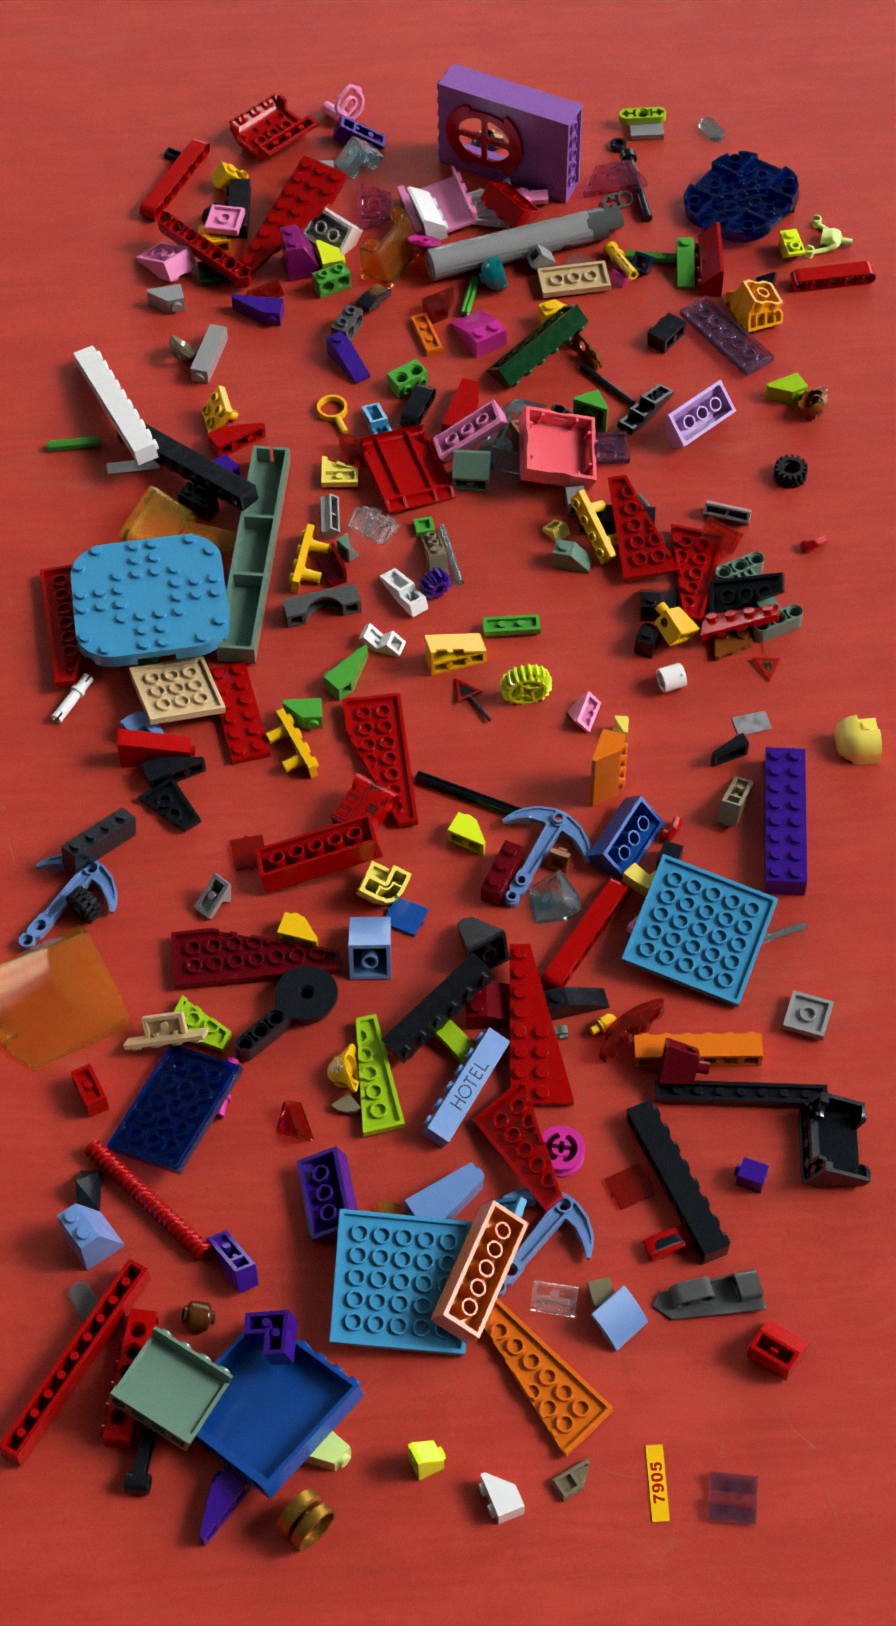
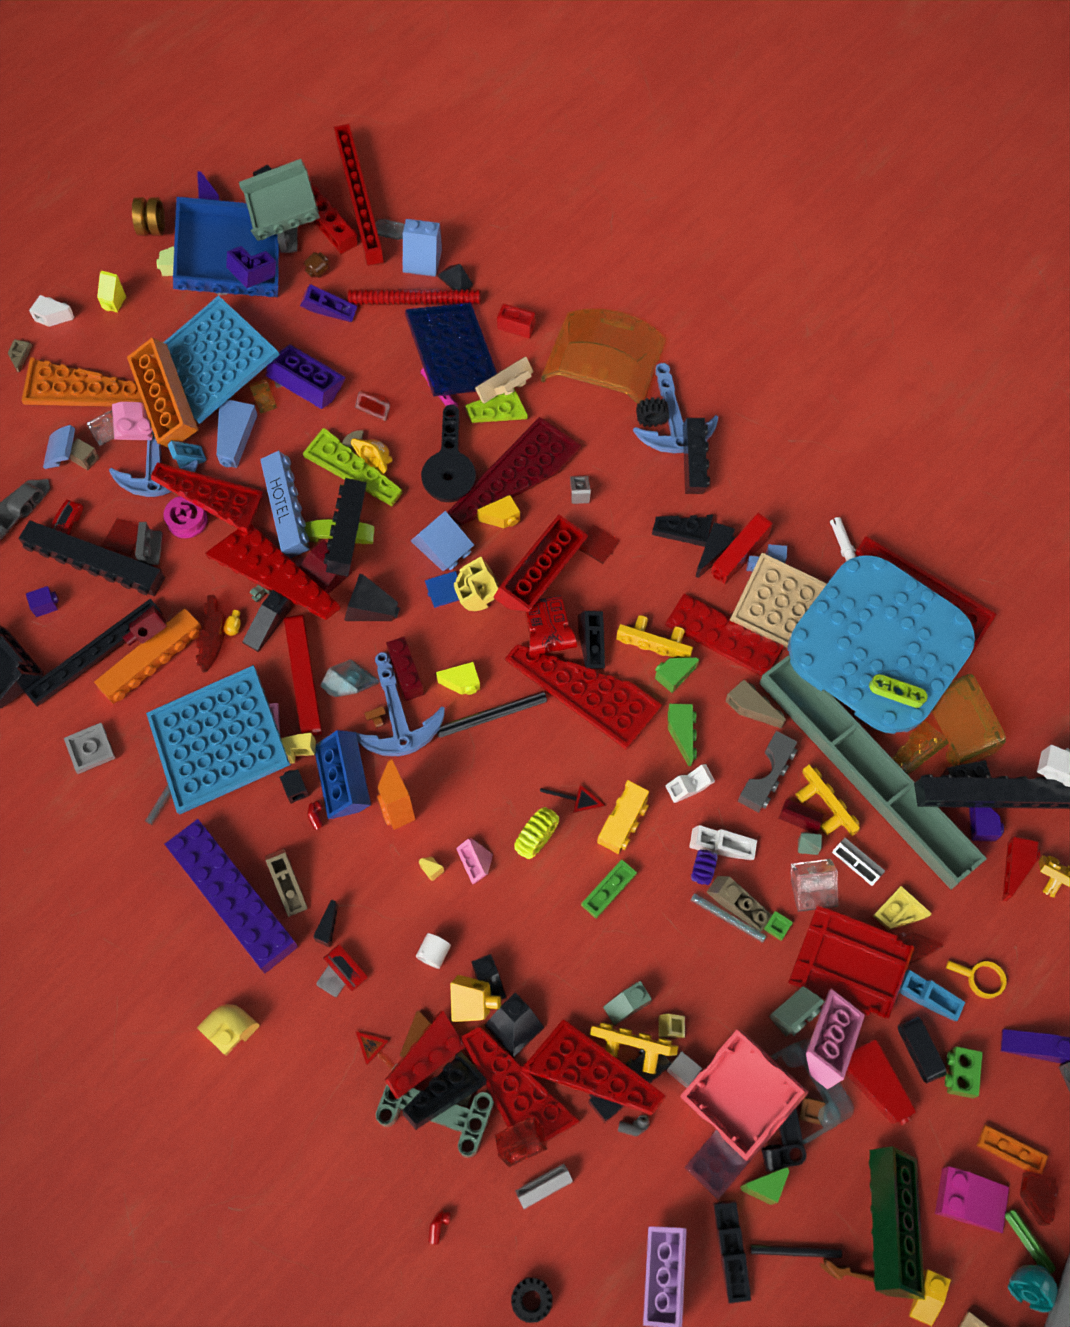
camera: 135 degrees right, 10 degrees up
(184, 561) = (890, 693): none -> lime beam
(280, 651) = (751, 704): none -> dark tan slope
(337, 781) = (592, 638): none -> black slope
(533, 1267) = (131, 421): none -> bright pink slope
(616, 1149) = (148, 545): none -> dark grey bracket
(742, 717) = (345, 967): none -> red slope

